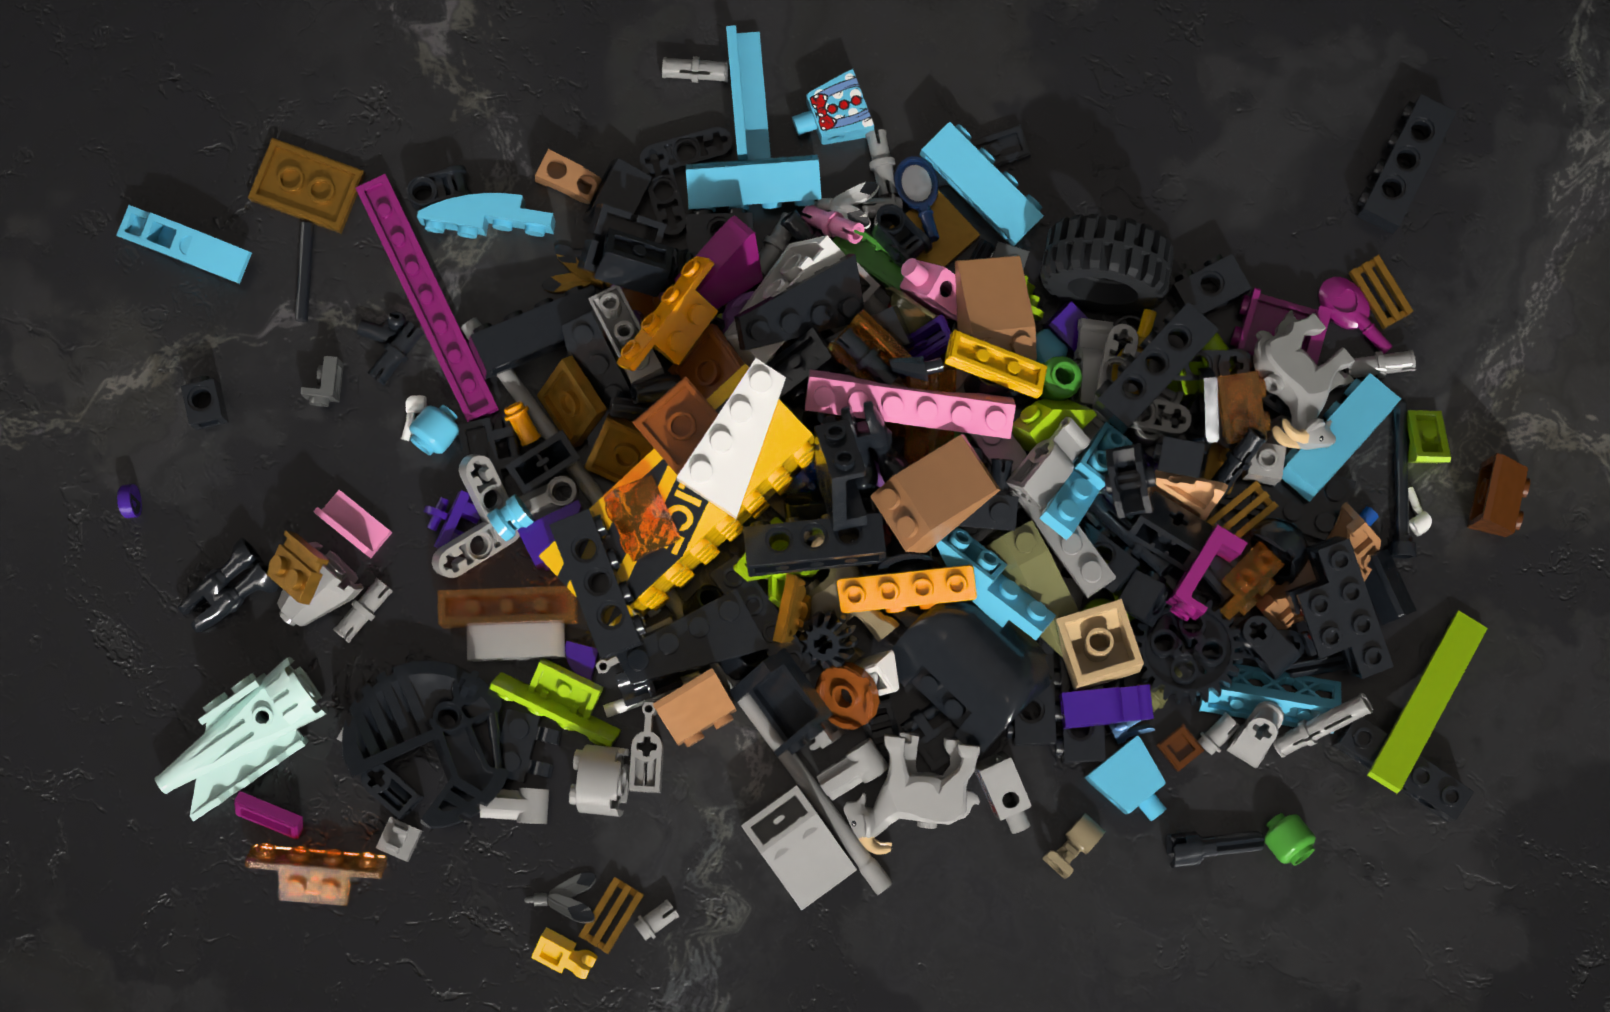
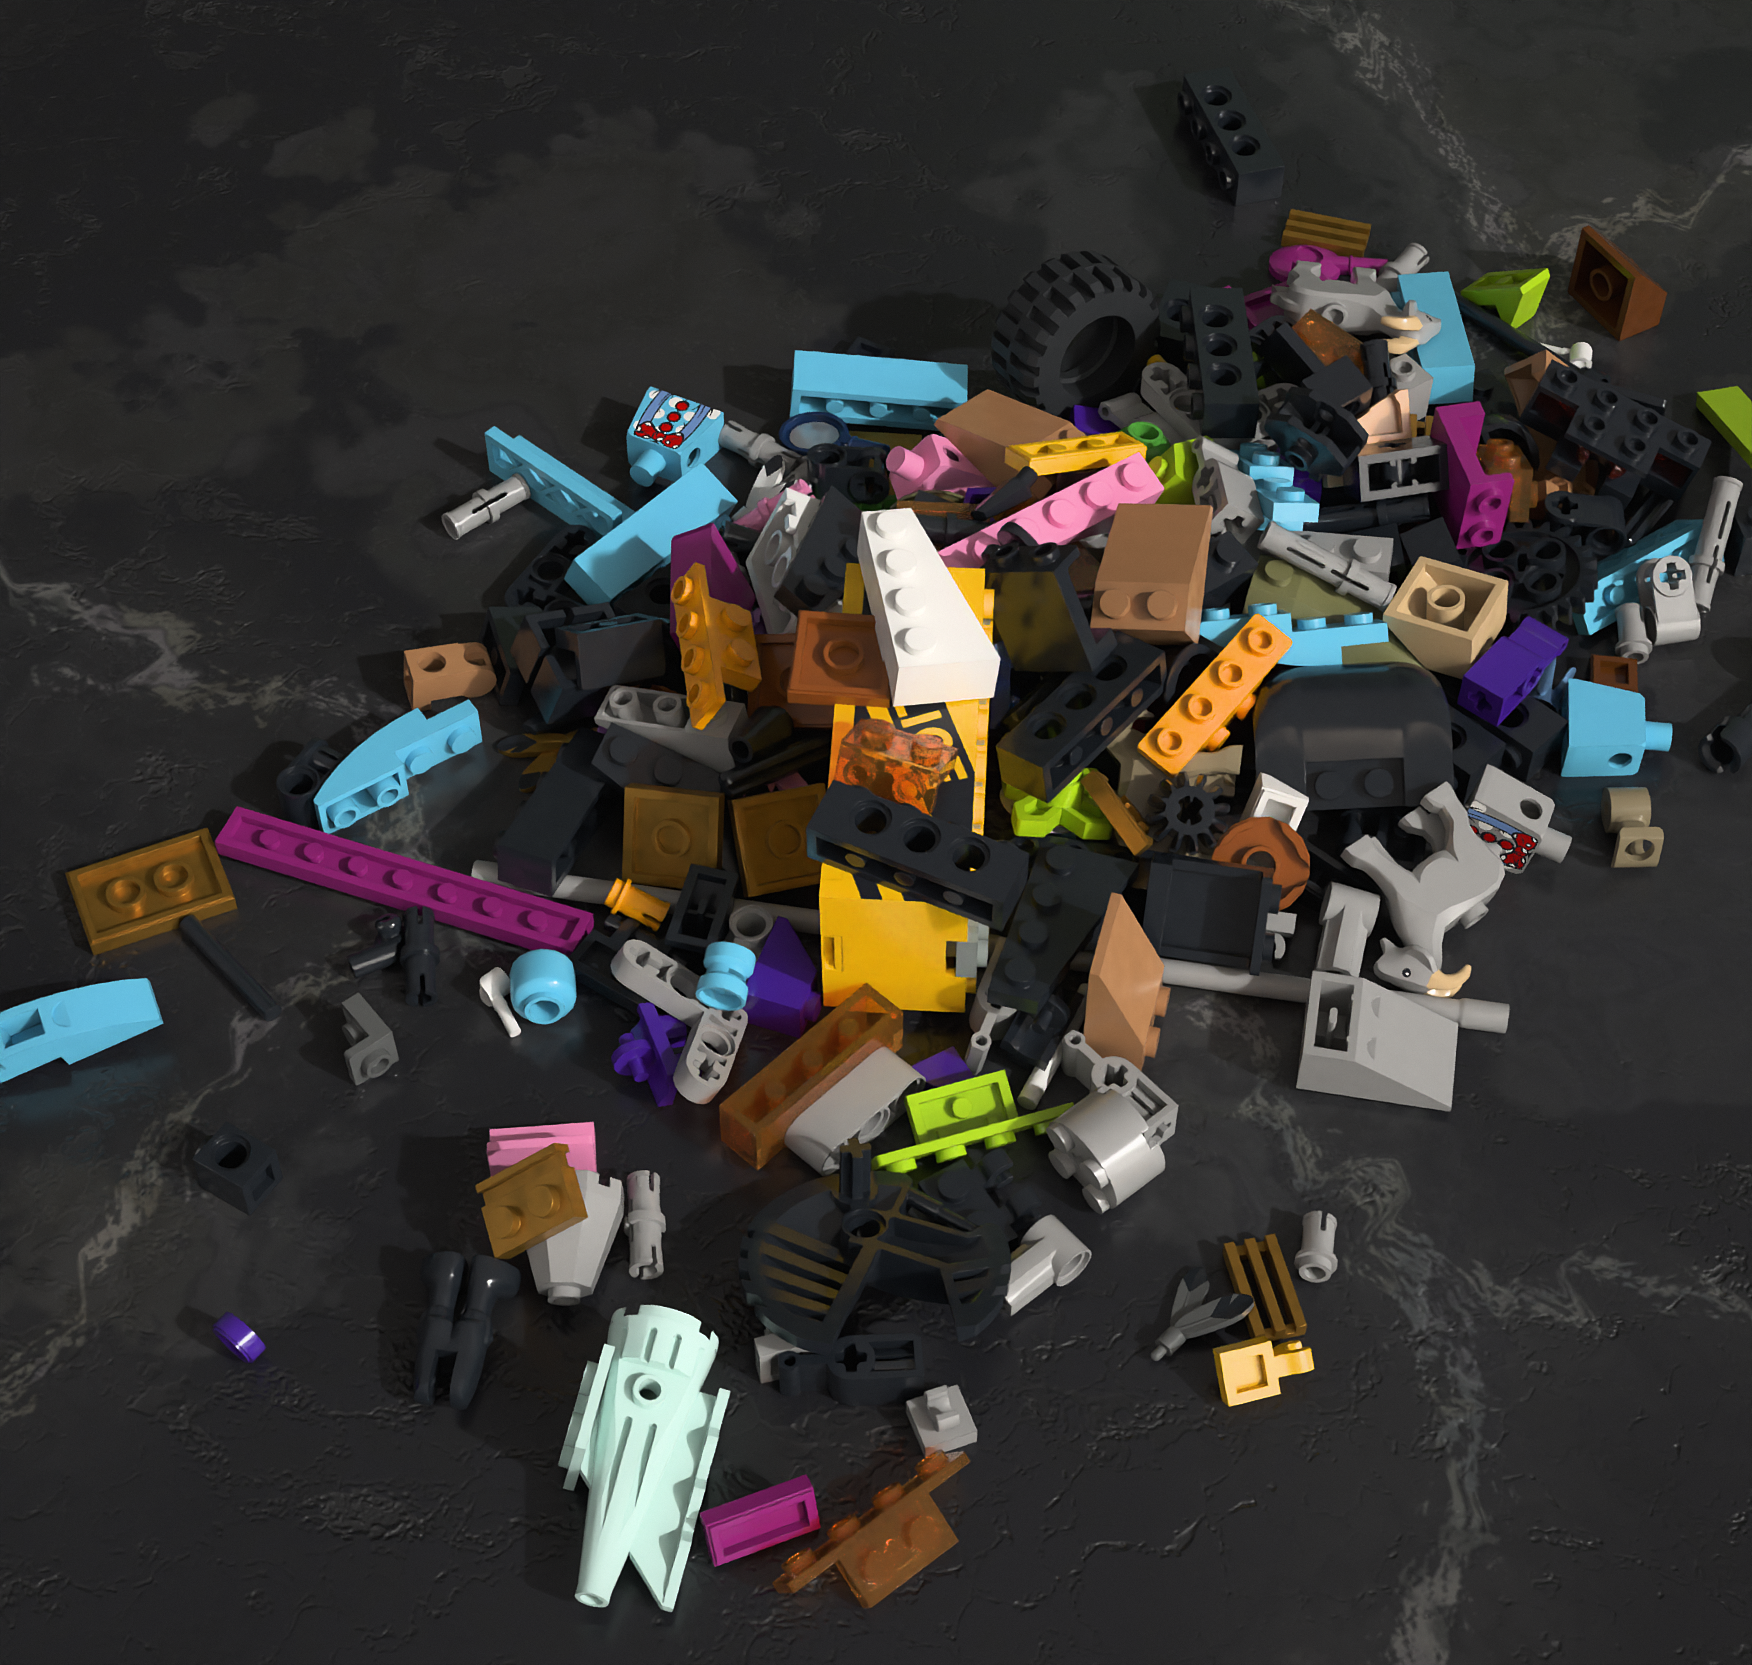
camera: 45 degrees left, 30 degrees down
(1060, 577) = (1376, 590): none -> light grey pin

